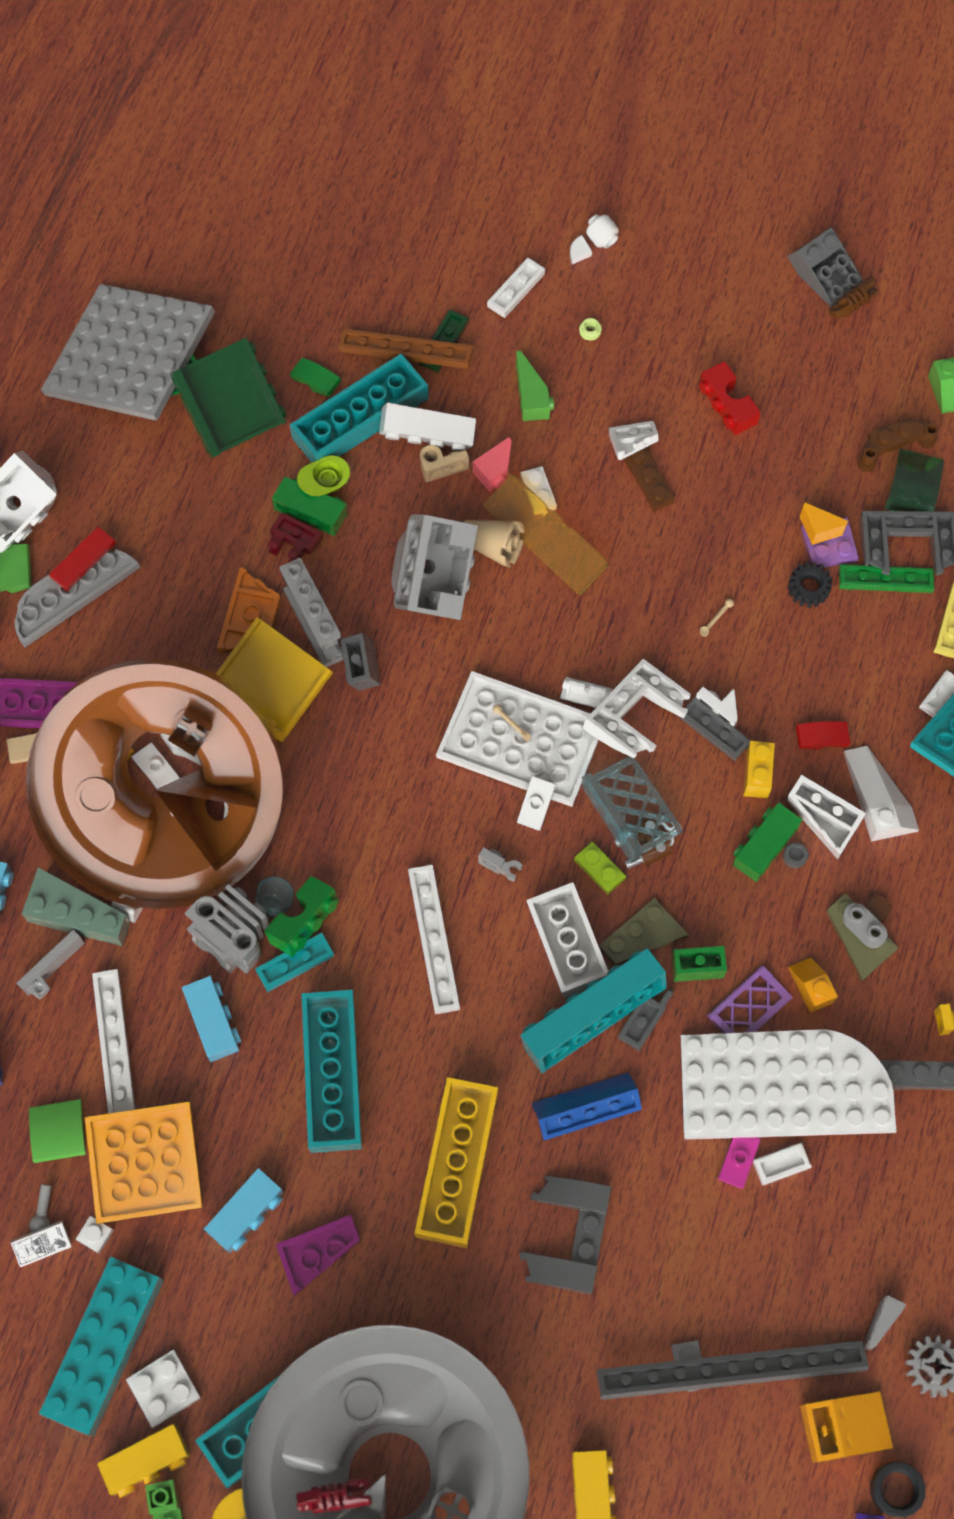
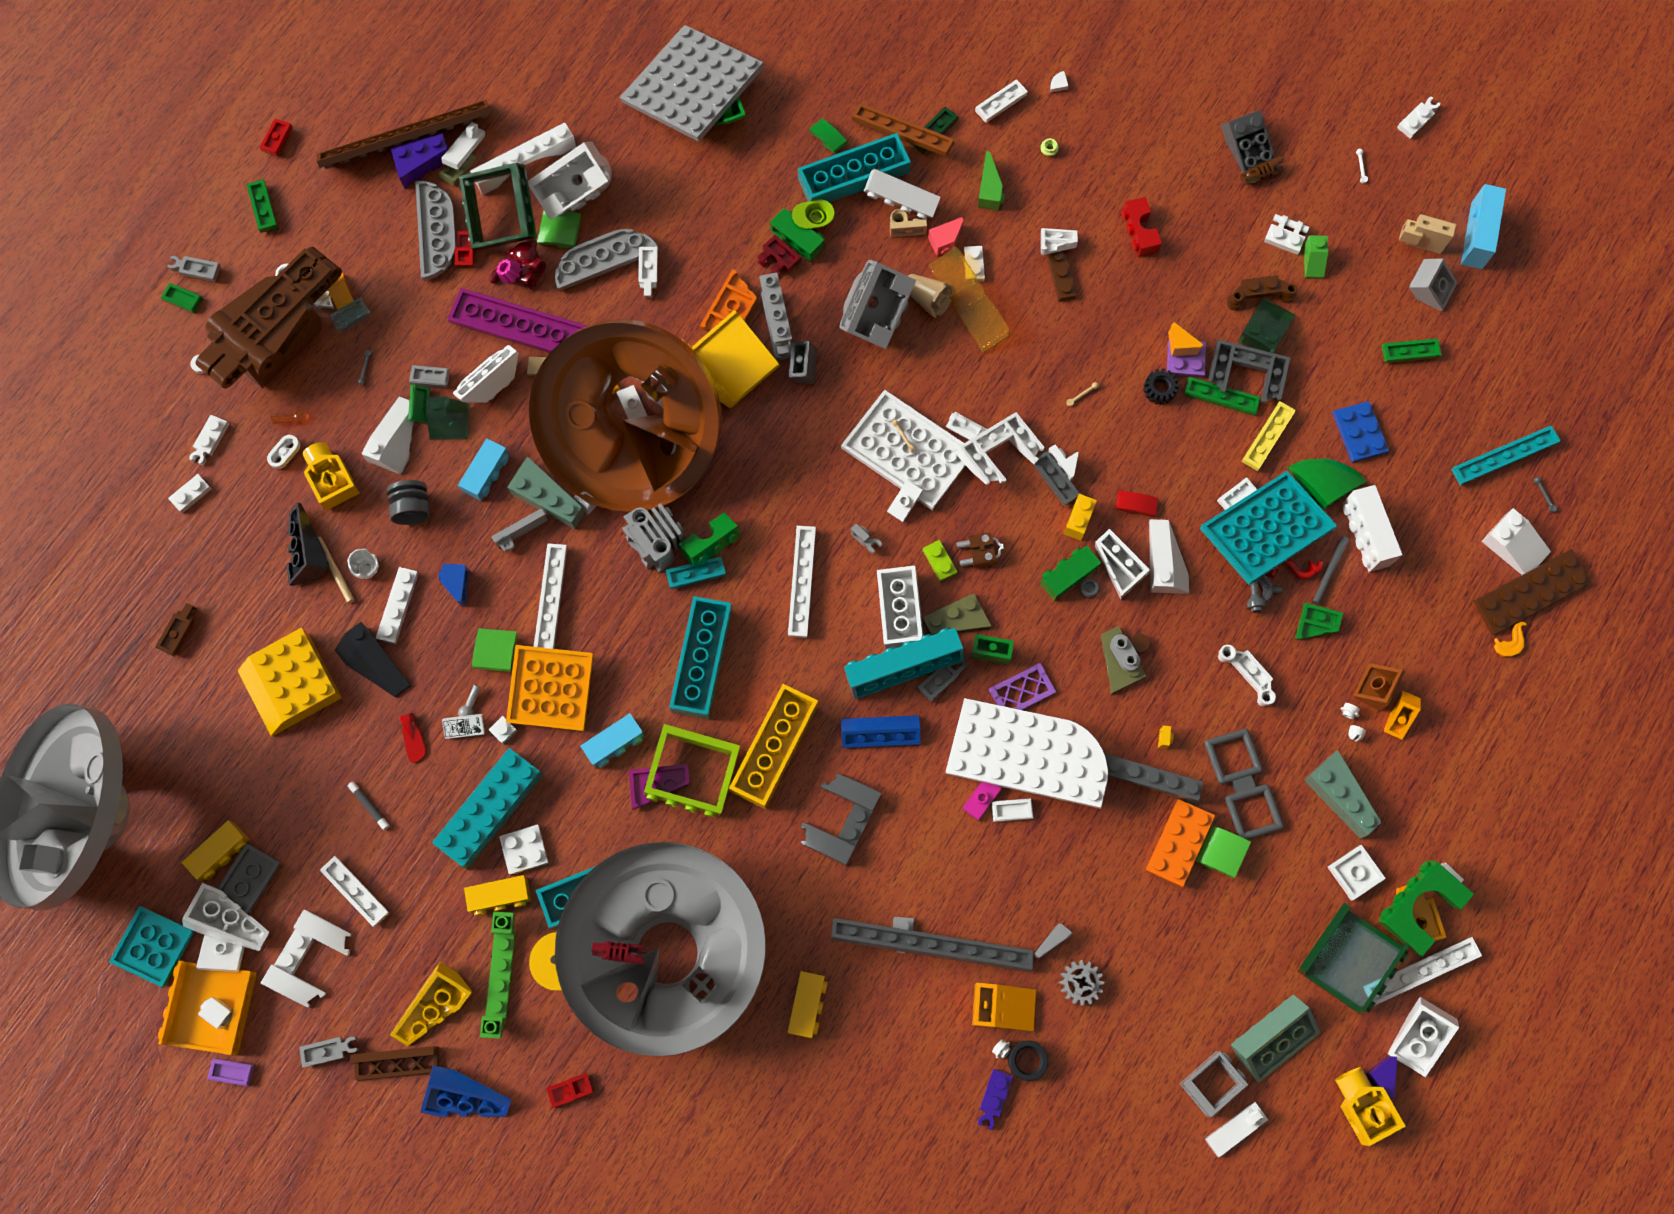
camera: 15 degrees right, 5 degrees up
(82, 559) = (617, 234): red tile -> none
(132, 593) = (648, 269): none -> white hinge
(211, 1018) = (625, 598): medium azure brick -> none
(228, 397) = (757, 136): dark green panel -> none
(274, 895) = (693, 520): clear light blue hair -> none
(370, 1269) = (702, 741): none -> lime window
(602, 231) = (1080, 71): white head -> none
(616, 821) = (958, 521): clear light blue fence -> none
(813, 984) = (1073, 686): light orange slope -> none
(860, 1483) = (1001, 1049): none -> white plate
(902, 372) = (1284, 238): none -> white plate

